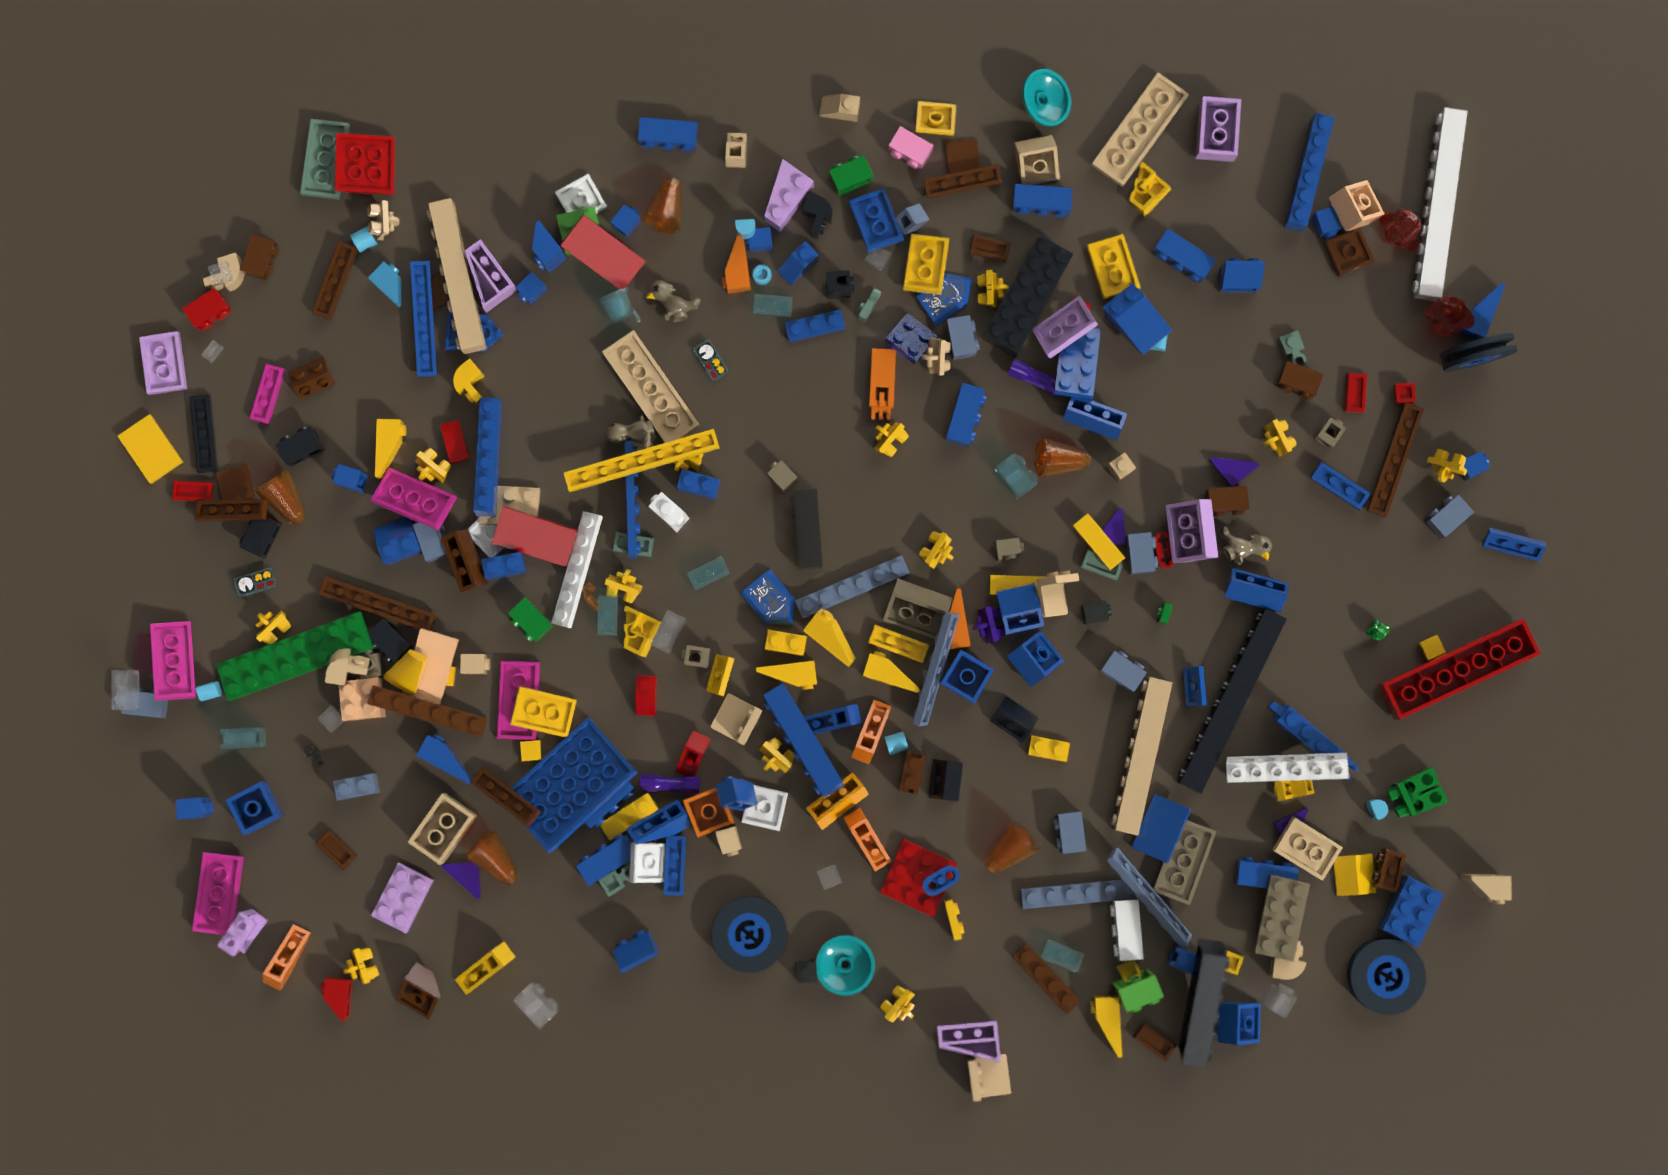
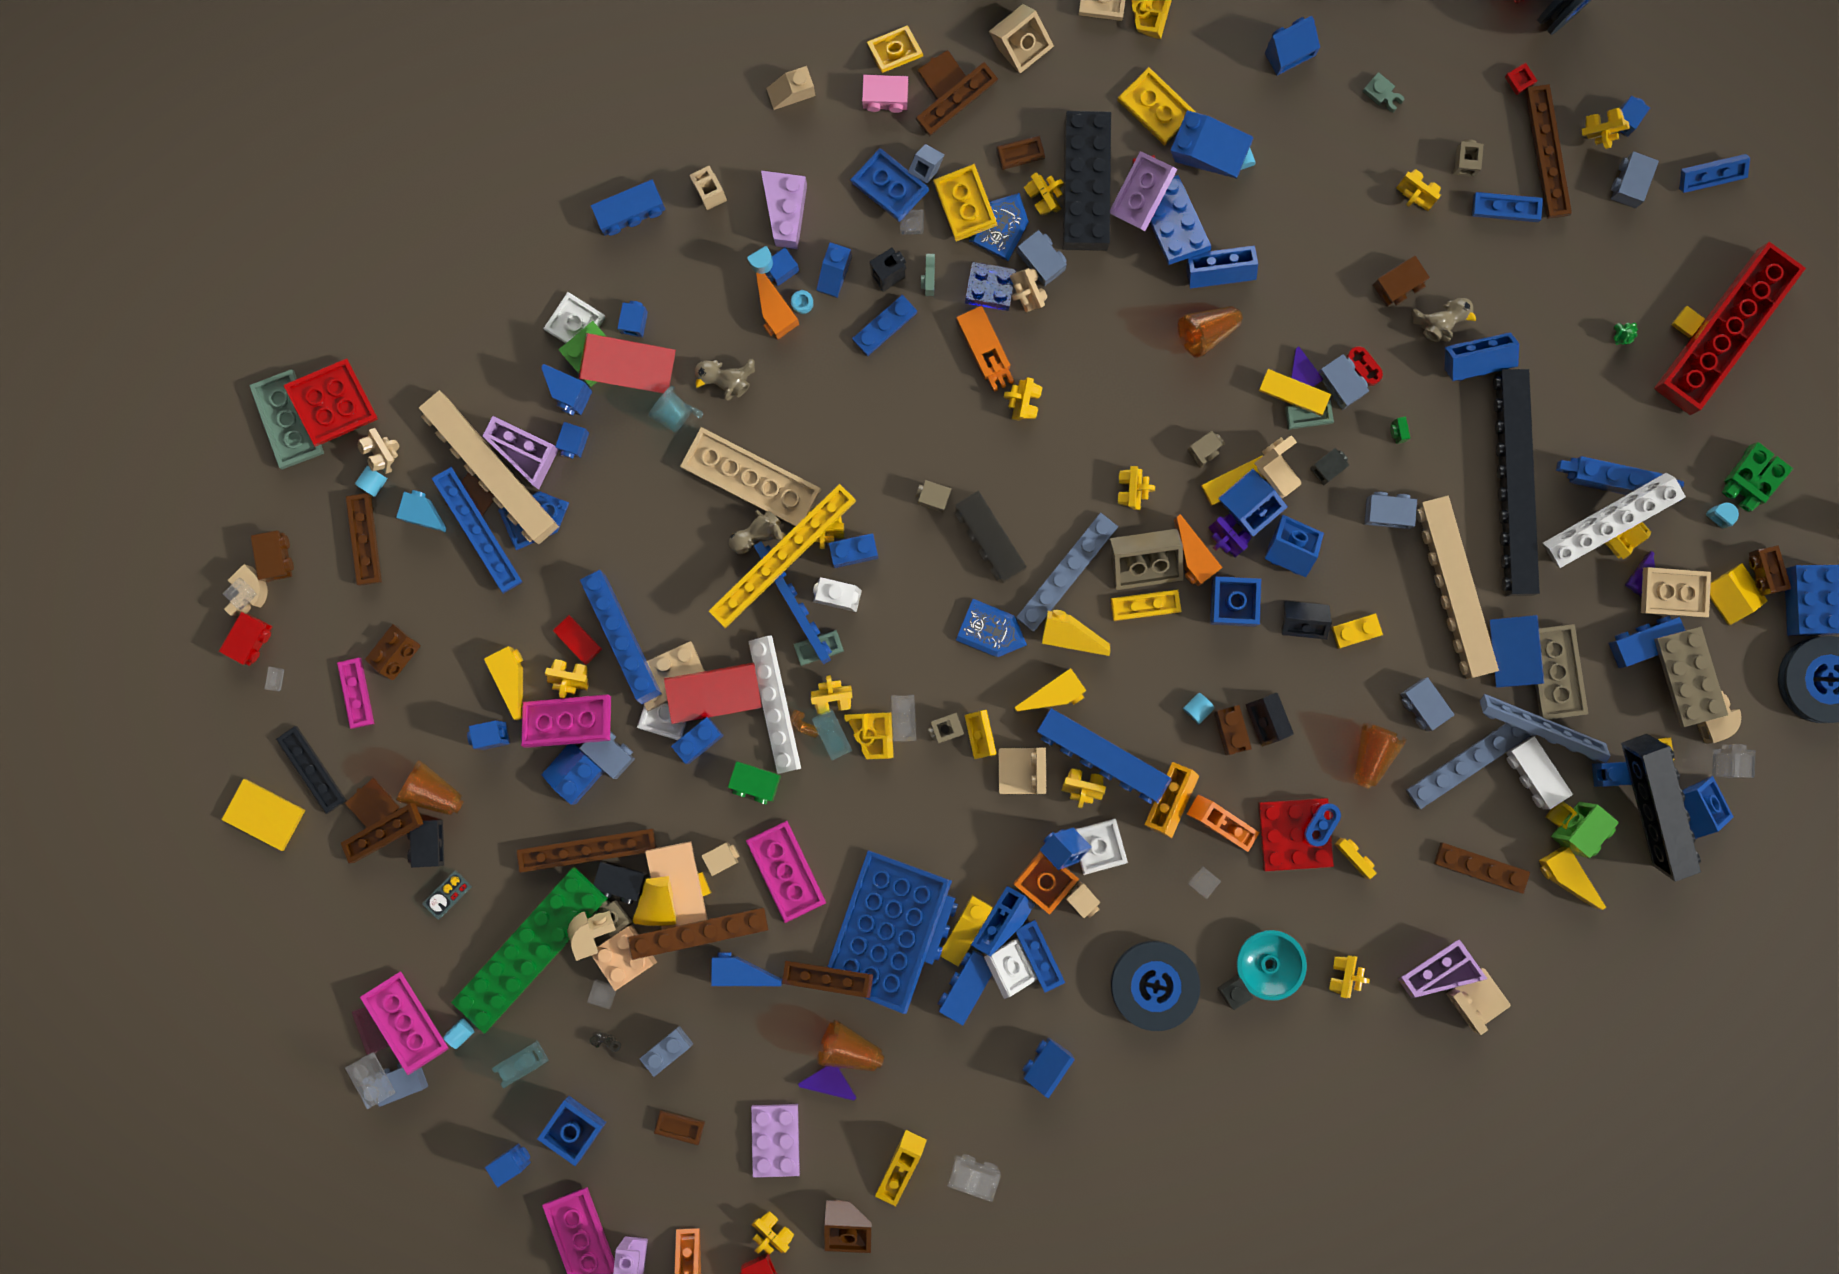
camera: 20 degrees left, 0 degrees up
(163, 363) = (229, 718): lavender plate -> none
(192, 491) = (330, 835): red tile -> none
(266, 632) = (492, 922): yellow hips -> none
(300, 446) = (418, 729): black brick -> none
(442, 828) = (779, 1047): tan brick -> none
(464, 560) = (653, 757): reddish brown brick -> none
(465, 378) = (553, 568): yellow brick -> none
(531, 750) = (827, 916): yellow tile -> none
(543, 712) = (818, 870): yellow tile -> none
(614, 882) = (986, 1007): sand green plate -> none
(646, 695) = (915, 796): red slope -> none
(654, 783) = (975, 881): dark purple axle -> none
(666, 208) = (667, 285): clear orange cone -> none
(693, 754) = (997, 831): red slope -> none
(708, 573) = (912, 636): clear light blue plate -> none
(710, 360) = (796, 416): tile -> none
(772, 305) = (830, 327): clear light blue plate -> none
(785, 643) = (1031, 665): yellow brick -> none
(821, 210) = (824, 203): black brick -> none
(834, 719) = (1123, 717): blue slope -> none
(850, 175) = (839, 151): green brick -> none
(871, 732) = (1167, 710): orange slope -> none
(885, 671) = (1149, 640): yellow slope -> none
(934, 674) = (1201, 618): sand blue plate -> none
(966, 415) = (1089, 335): blue brick -> none
(1017, 475) = (1174, 369): clear light blue brick -> none
(1037, 378) = (1123, 260): dark purple axle -> none
(1042, 200) = (1048, 75): blue brick -> none
(1062, 955) = (1486, 835): clear light blue plate -> none
(1121, 467) = (1275, 304): tan brick -> none
(1155, 1041) = (1627, 873): reddish brown tile -> none
(1184, 256) = (1223, 57): blue brick -> none
(1191, 531) = (1384, 330): lavender brick -> none
(1194, 686) = (1471, 488): blue plate -> none
(1233, 470) = (1390, 248): dark purple tile -> none
(1299, 380) = (1408, 121): reddish brown brick -> none
(1355, 392) = (1470, 104): red tile -> none

